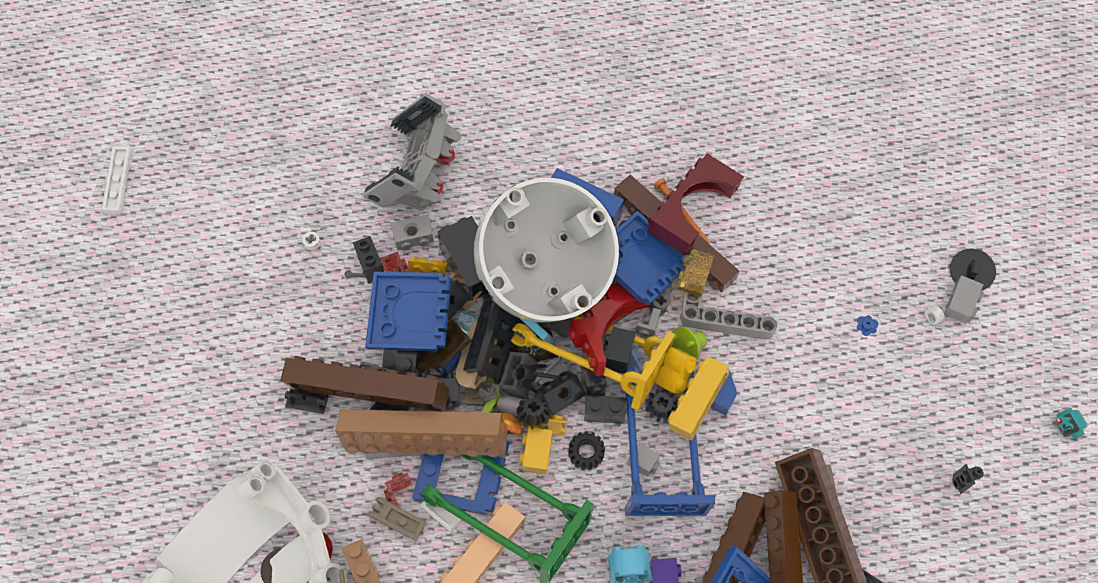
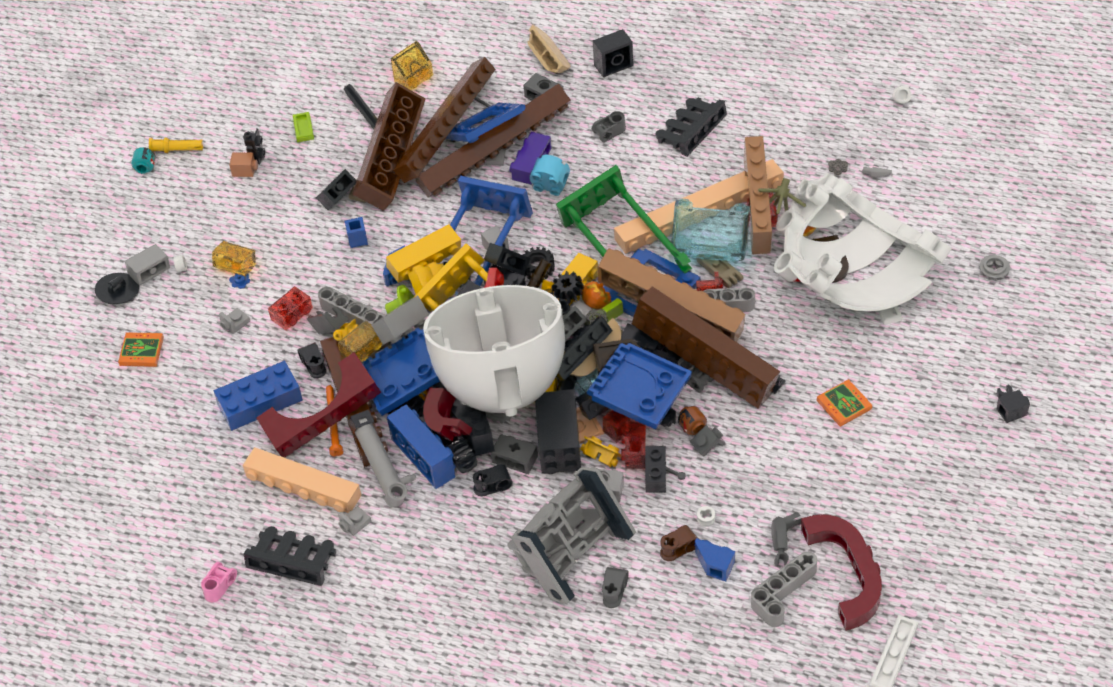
camera: 150 degrees left, 15 degrees down
(52, 457) = (1012, 404): none -> black brick
(146, 209) = (839, 531): none -> dark red arch
(211, 220) = (801, 567): none -> light grey beam
(220, 403) = (844, 402): none -> tile
(240, 244) = (779, 535): none -> dark grey arm
(287, 200) = (715, 560): none -> blue slope
(324, 204) = (677, 543): none -> reddish brown piece
(334, 312) = (707, 439): none -> dark grey bracket
(355, 324) = (692, 420): none -> dark orange head
(362, 474) = (735, 297): none -> light grey beam
(363, 150) = (613, 586): none -> dark grey piece
(415, 534) = (711, 232): none -> clear light blue windscreen
(574, 424) = (539, 274): none -> dark brown pin
(606, 129) = (354, 520): none -> light grey bracket
(612, 423) = (506, 259): none -> black brick
(639, 184) = (362, 426): none -> light grey piece
(645, 74) = (289, 566): none -> black fence
(670, 144) = (302, 480): none -> light nougat brick
(671, 301) = (400, 321): none -> light grey brick
(681, 44) = (217, 582): none -> bright pink piece
(718, 282) = (344, 330): none -> yellow hinge
(739, 258) = (313, 360): none -> black piece
(746, 294) = (325, 323): none -> dark grey hinge
(759, 204) = (254, 394): none -> blue brick
(787, 410) = (356, 232): none -> blue brick
(794, 304) = (290, 308): none -> clear red brick
(838, 274) = (233, 321): none -> light grey bracket
(843, 457) = (336, 189): none -> black brick
(887, 337) = (233, 258): none -> clear yellow brick
(899, 216) = (141, 349): none -> tile
(943, 544) = (303, 127): none -> lime tile
(966, 455) = (243, 164): none -> nougat brick
(1063, 454) = (169, 145): none -> yellow pin

